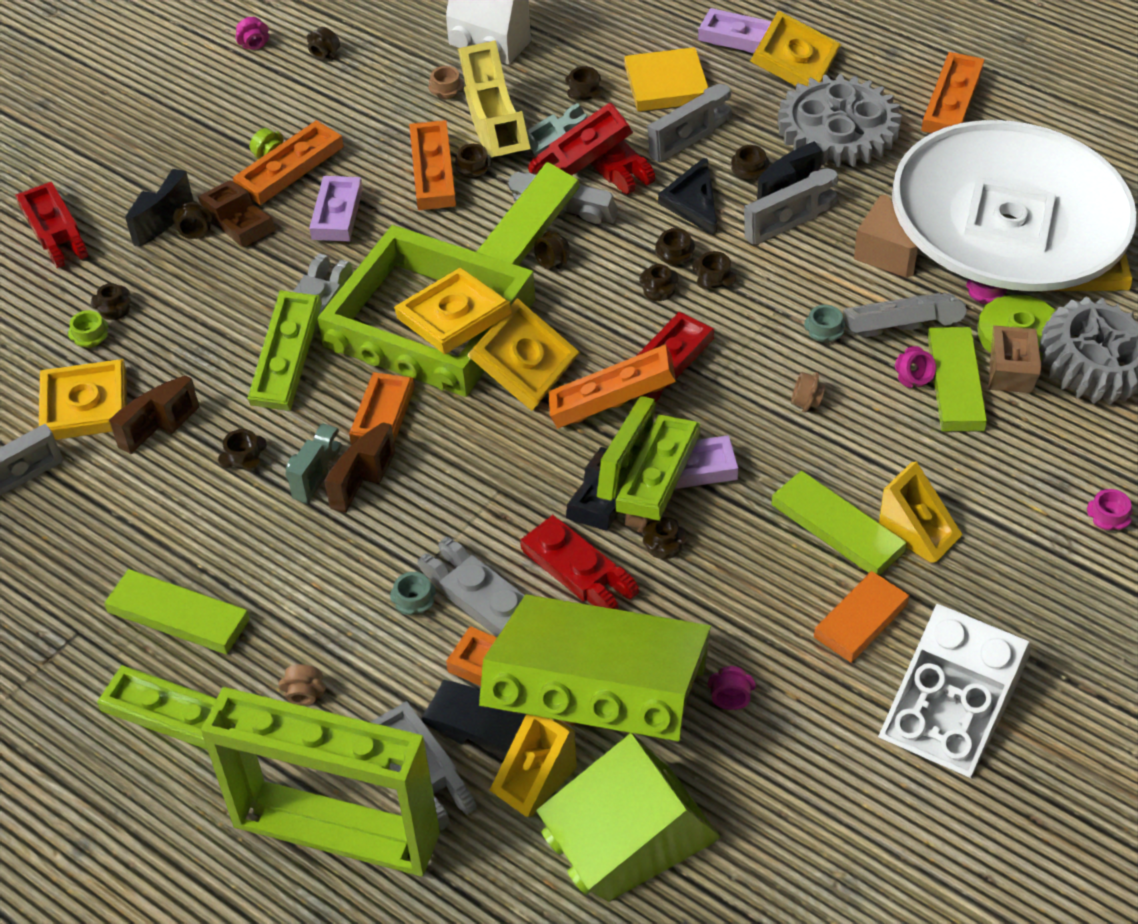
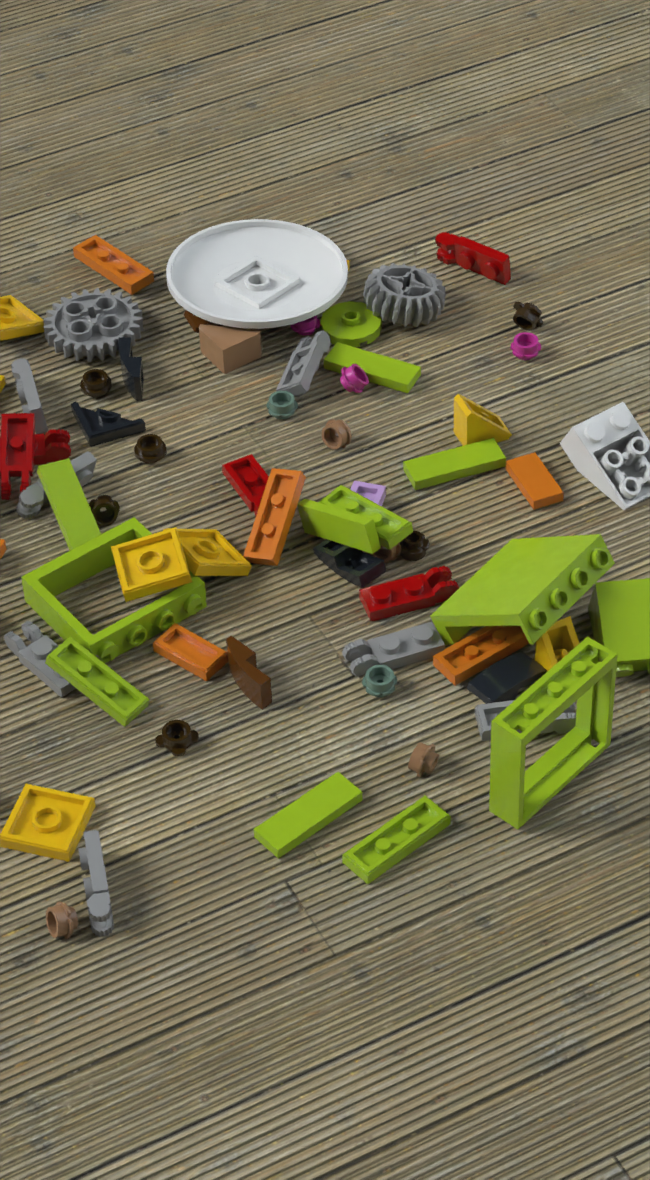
camera: 65 degrees left, 5 degrees down
(161, 407) = (107, 775): reddish brown slope -> none
(309, 467) = (226, 698): sand green plate -> none
(659, 282) = (177, 469): dark brown plate -> none
(713, 270) = (189, 438): dark brown plate -> none
(790, 206) = (159, 377): light grey hinge -> none
(1014, 359) = (385, 330): medium nougat slope -> none

